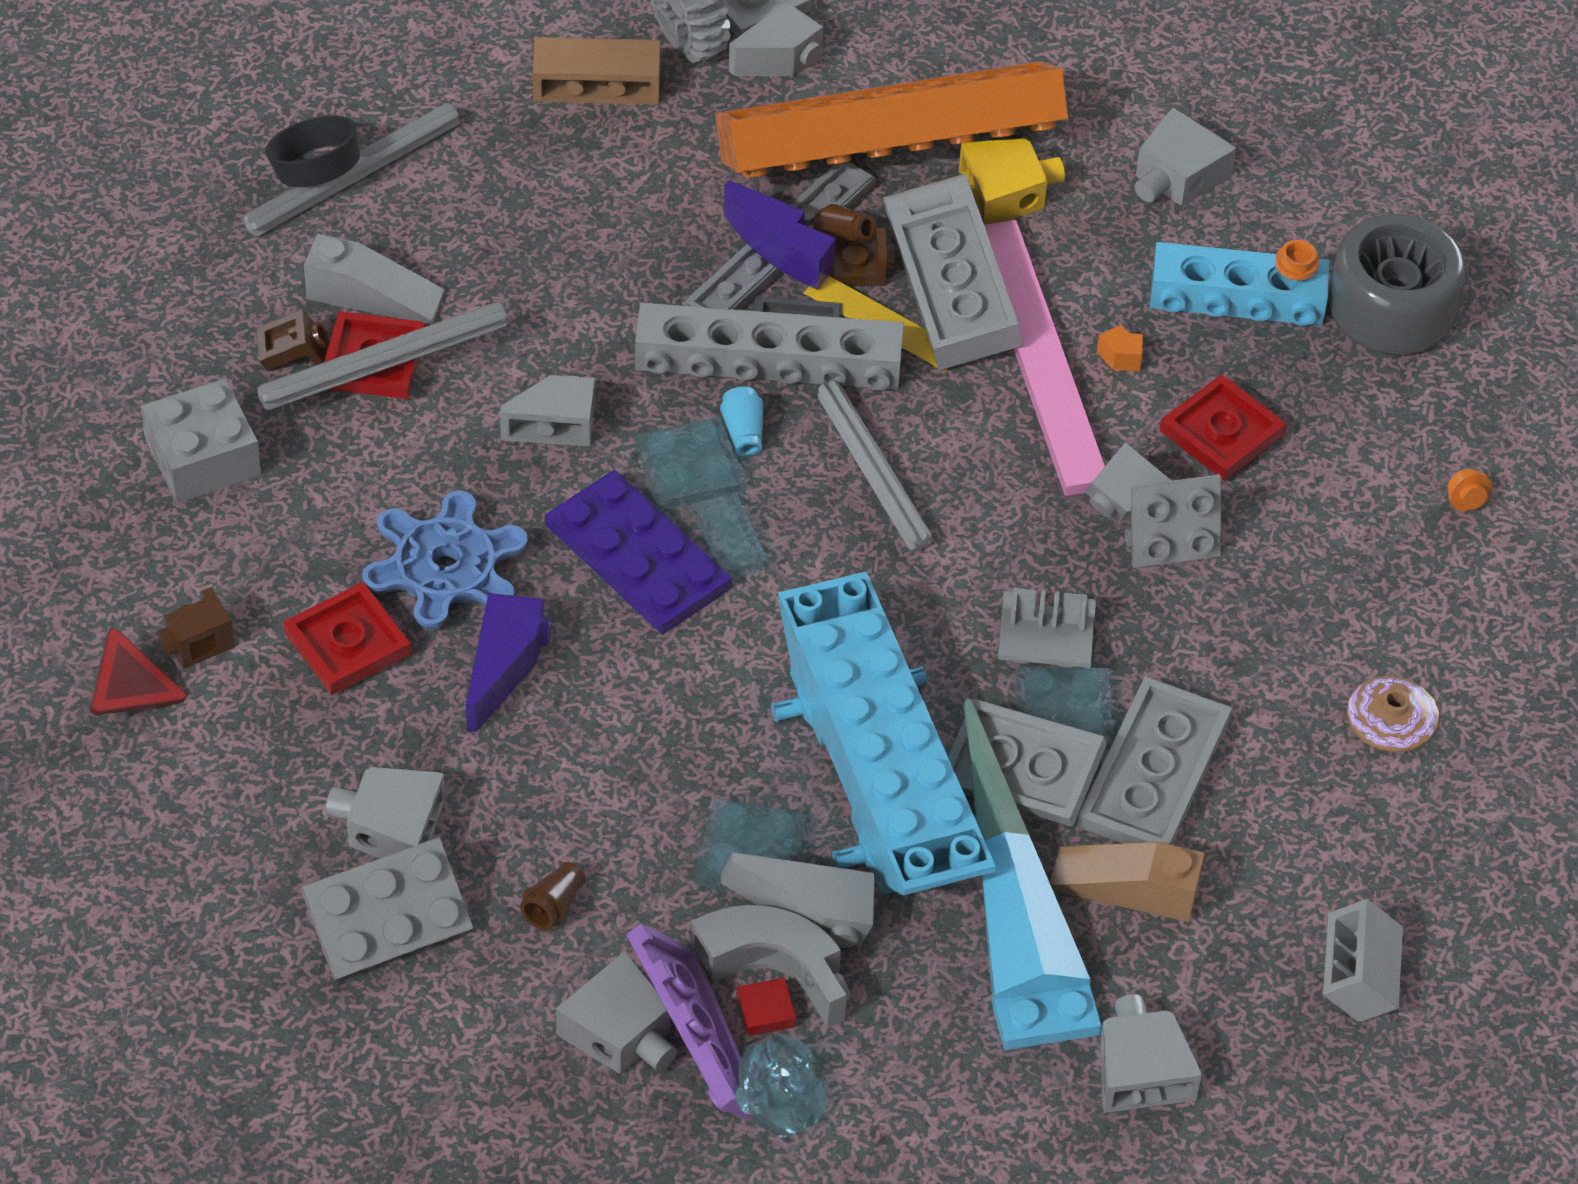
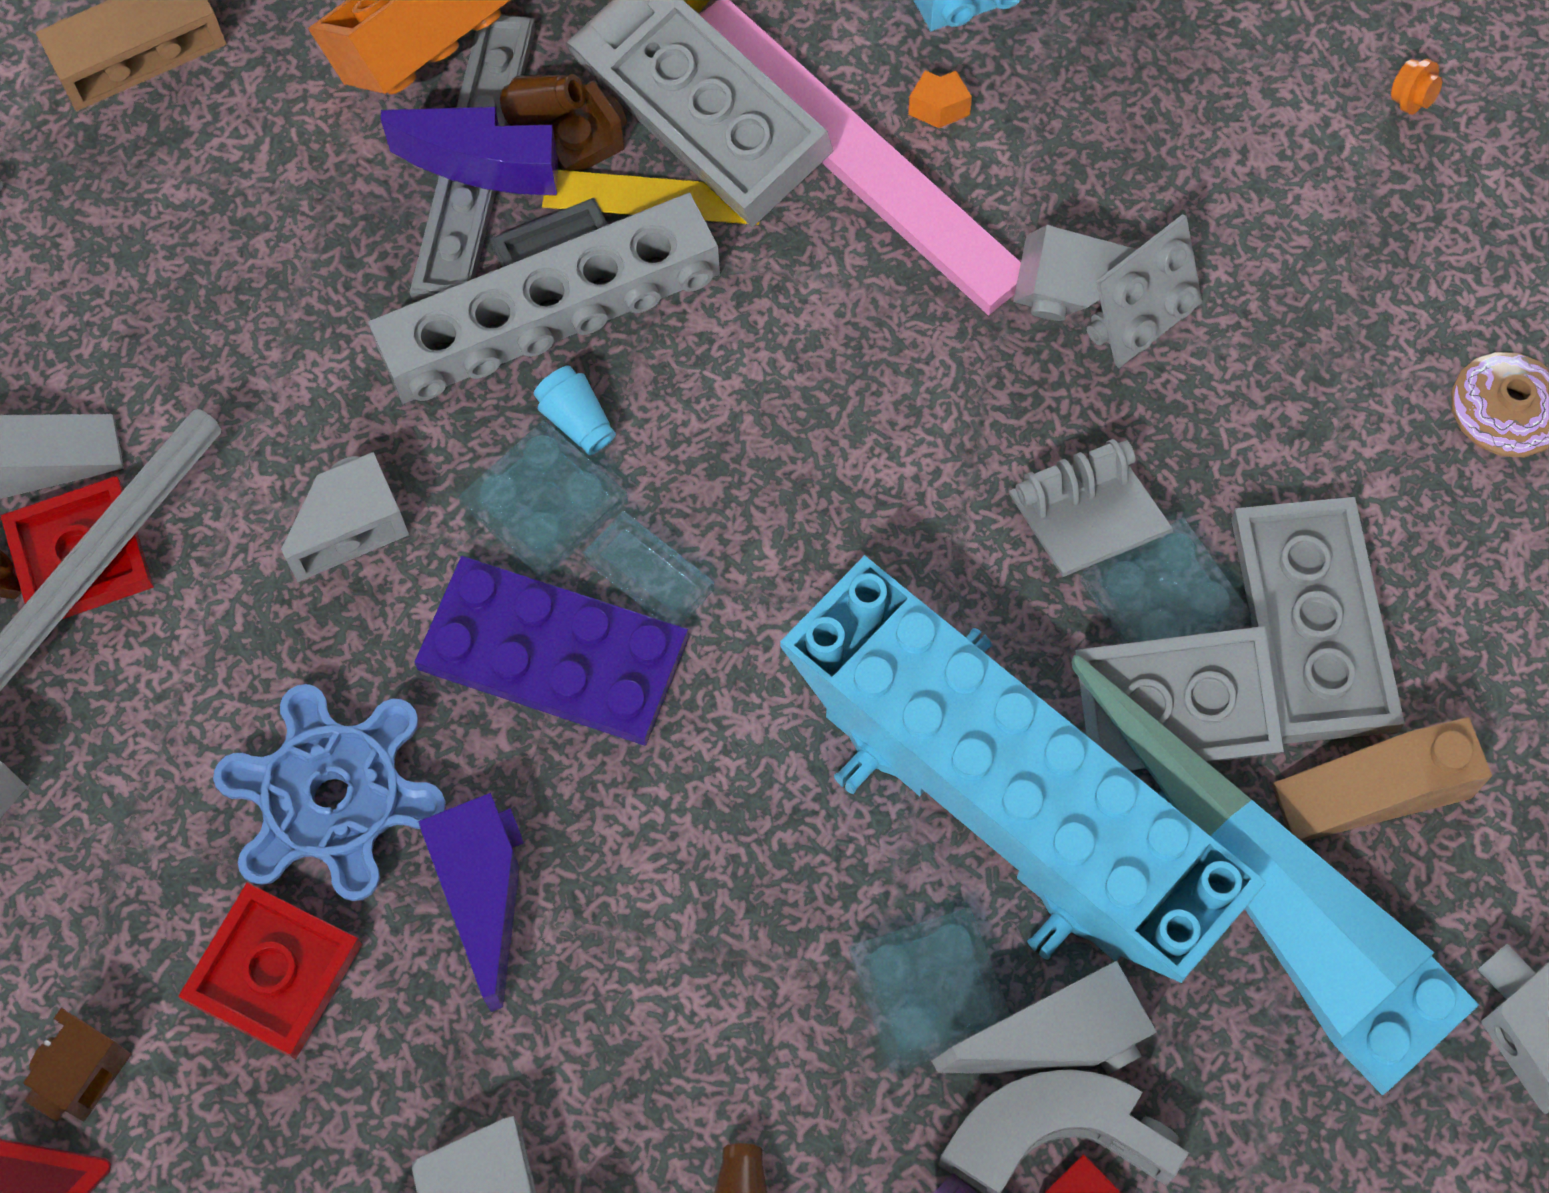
camera: 25 degrees left, 15 degrees up
(874, 466) = (758, 390): light grey axle -> none
(1222, 427) = (1110, 141): red plate -> none

